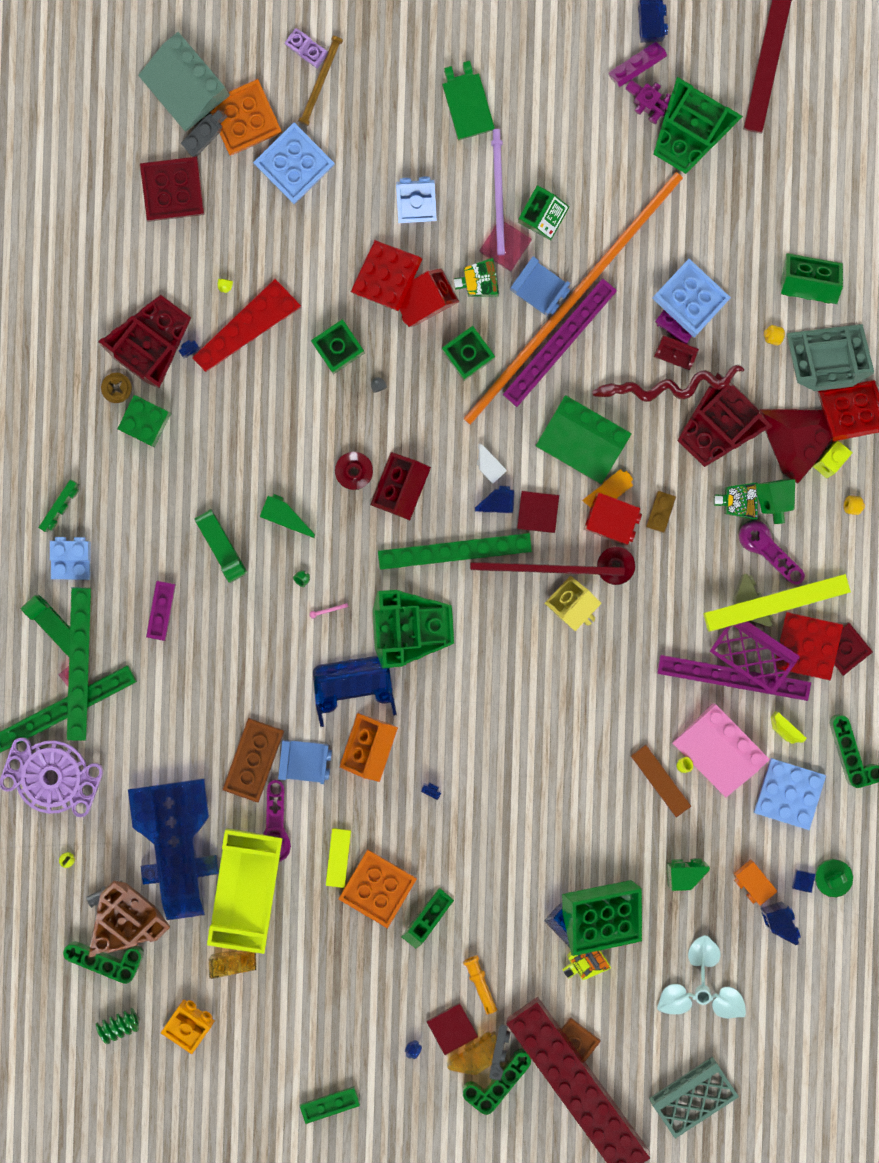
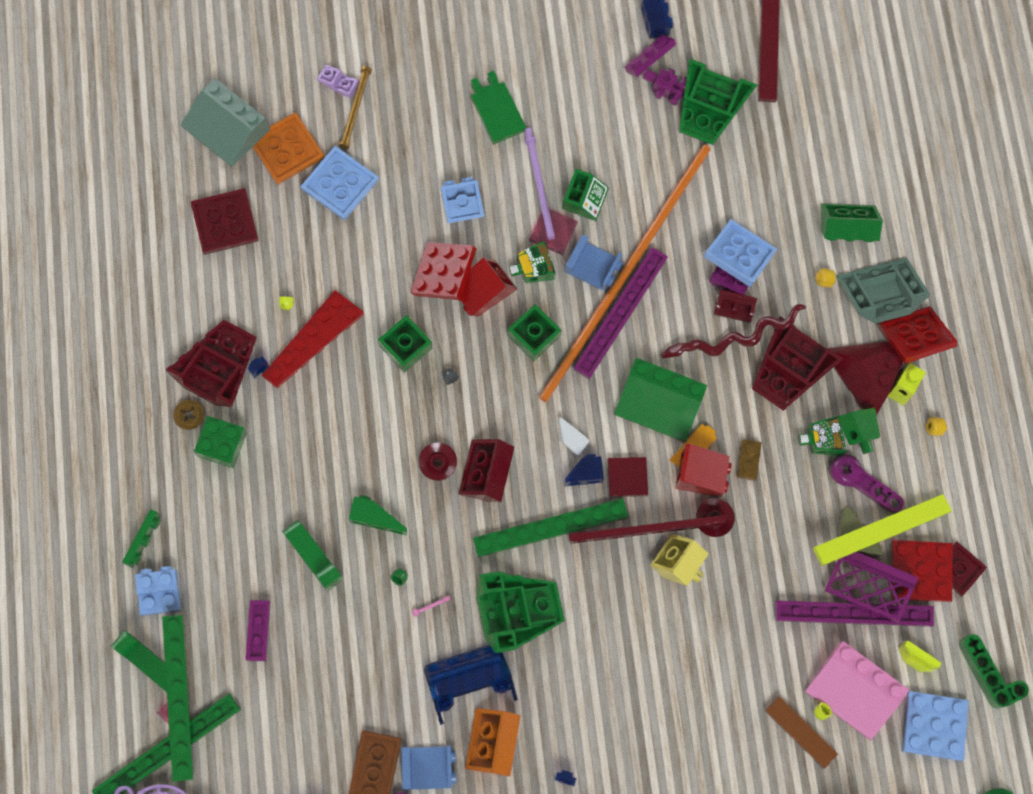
camera: 15 degrees left, 15 degrees down
(204, 133) = (250, 166): dark grey hinge -> none

